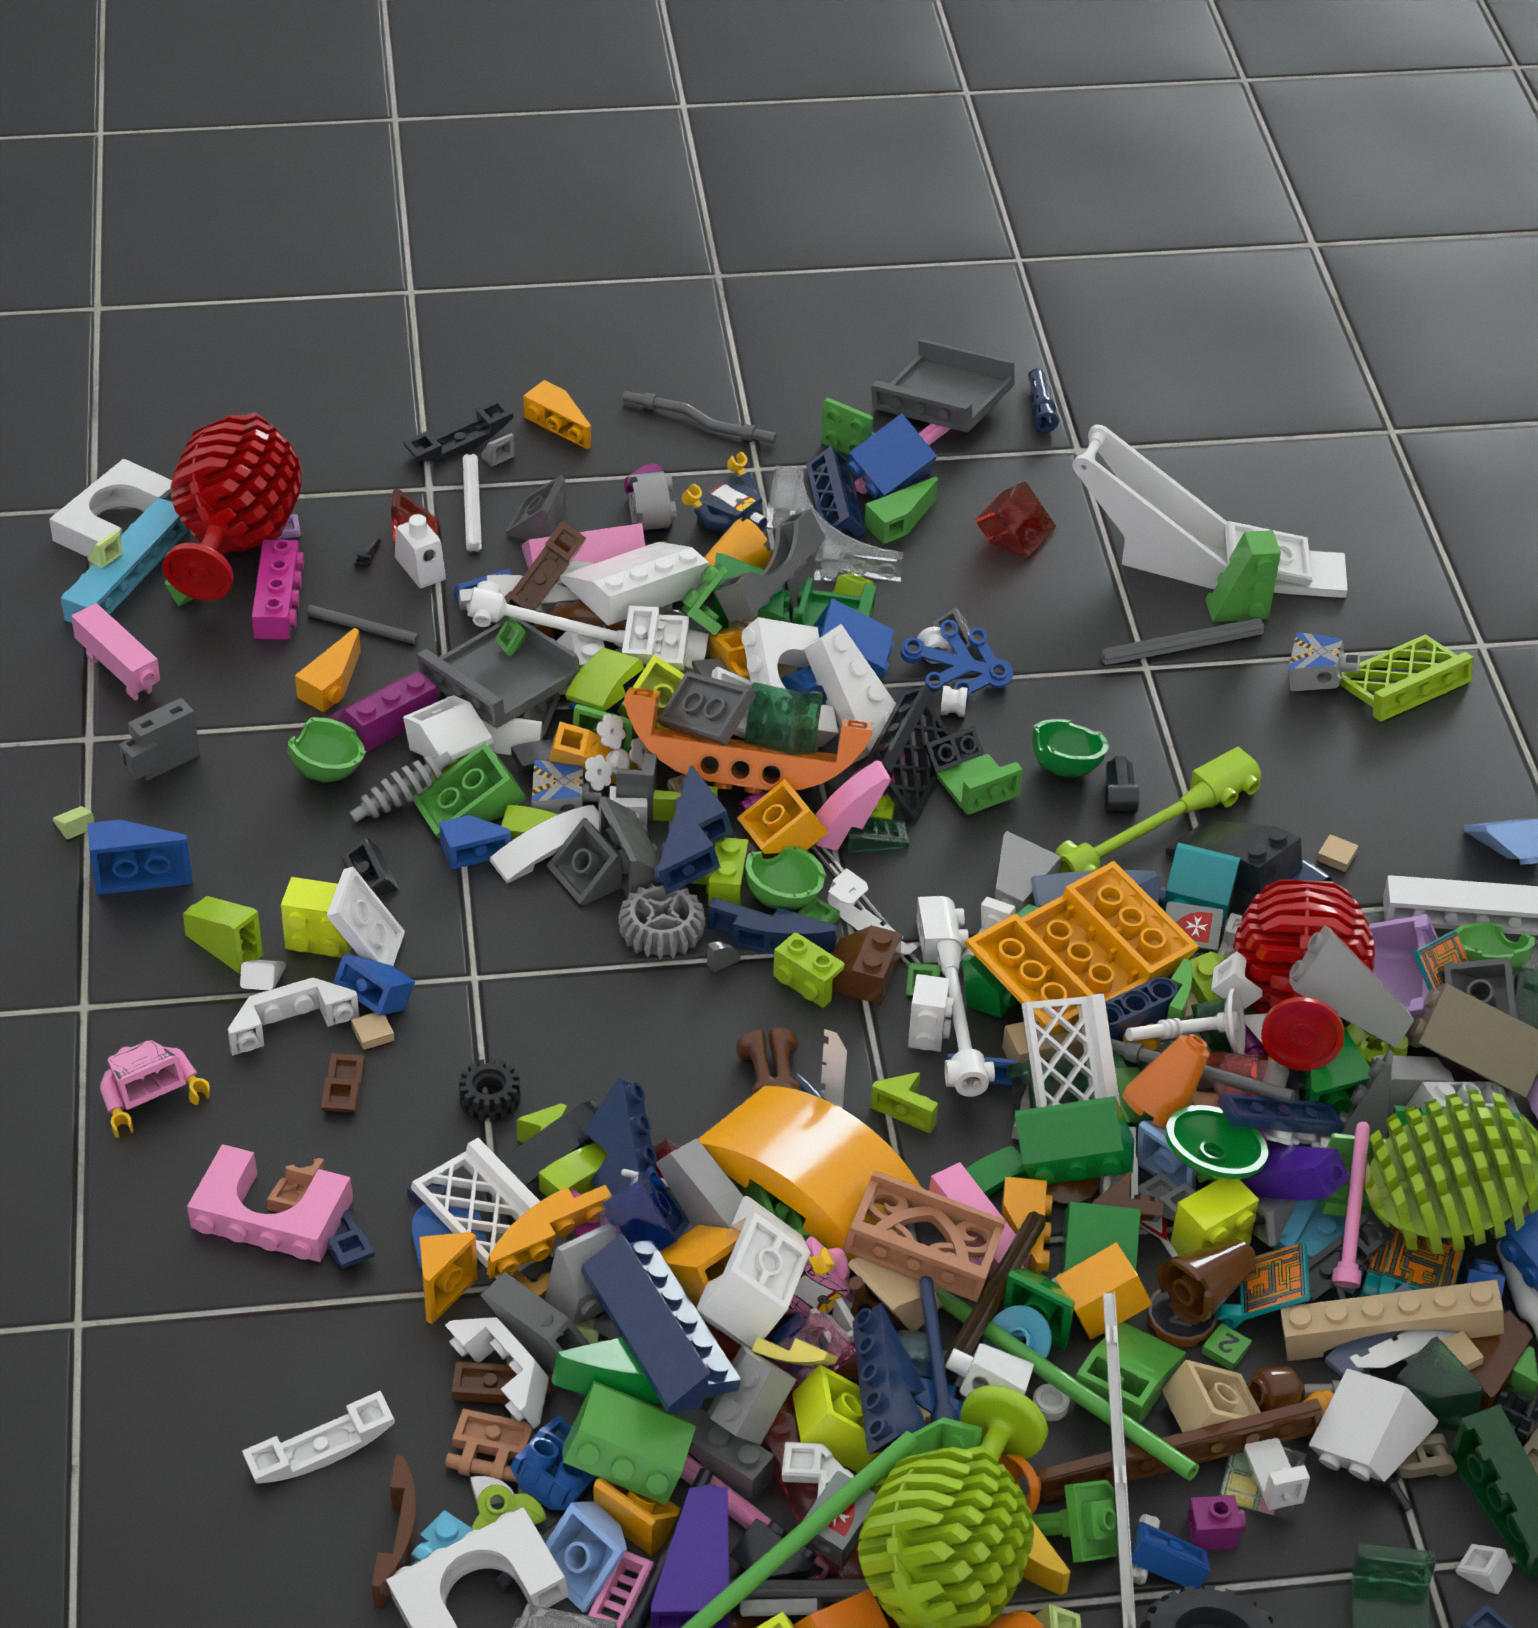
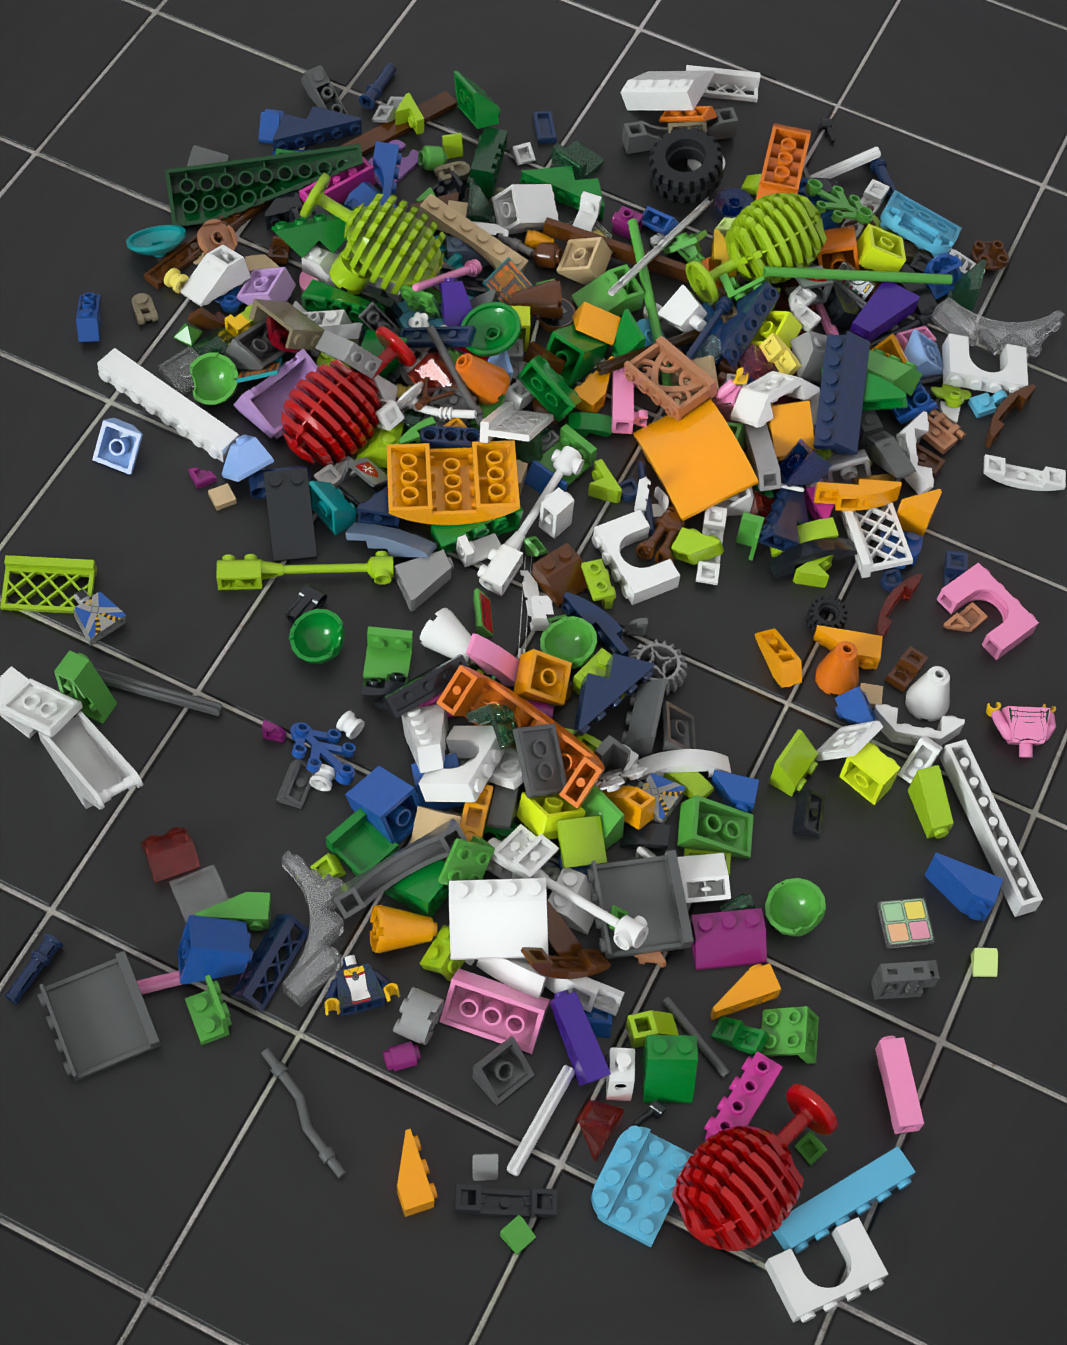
camera: 150 degrees left, 15 degrees up
(106, 550) = (864, 1196): yellowish green slope -> none
(136, 938) = (990, 828): none -> white brick
(190, 813) = (905, 922): none -> tile
(253, 655) = (791, 1032): none -> bright green bracket
(292, 1050) = (930, 695): none -> white cone
(308, 640) = (738, 1036): none -> green slope
(341, 500) = (638, 1183): none -> medium azure plate
(373, 569) = (669, 1068): none -> green slope
(389, 742) = (741, 902): none -> clear green cone
(401, 786) = (758, 854): light grey piece -> none
(405, 1171) = (903, 590): none -> clear red slope
(413, 596) = (649, 1023): none -> lime slope
(418, 889) = (794, 765): none -> lime slope
(430, 1021) = (839, 669): none -> orange cone
(430, 1065) = (867, 645): none -> light orange slope
(432, 422) = (517, 1234): none -> bright green slope
(475, 542) = (578, 1038): none -> dark purple slope
(519, 1005) = (780, 658): none -> light orange slope
(664, 1116) = (750, 531): none -> bright green panel
(694, 1086) = (714, 525): none -> white slope
(720, 1071) = (695, 547): none -> lime slope
(767, 1001) = (635, 582): none -> white arch
(874, 1117) = (629, 489): none -> dark blue tile
(915, 874) = (483, 614): none -> slope
(920, 814) = (446, 636): none -> white cone
(952, 515) = (198, 891): none -> clear tile
(983, 1115) = (571, 438): none -> bright green bracket
(1028, 660) = (273, 732): none -> magenta tile
(1208, 1023) = (426, 399): none -> reddish brown plant
(1324, 1530) = (564, 185): none -> green slope
(1343, 869) = (245, 458): none -> light blue slope
(1385, 863) = (201, 477): none -> magenta tile

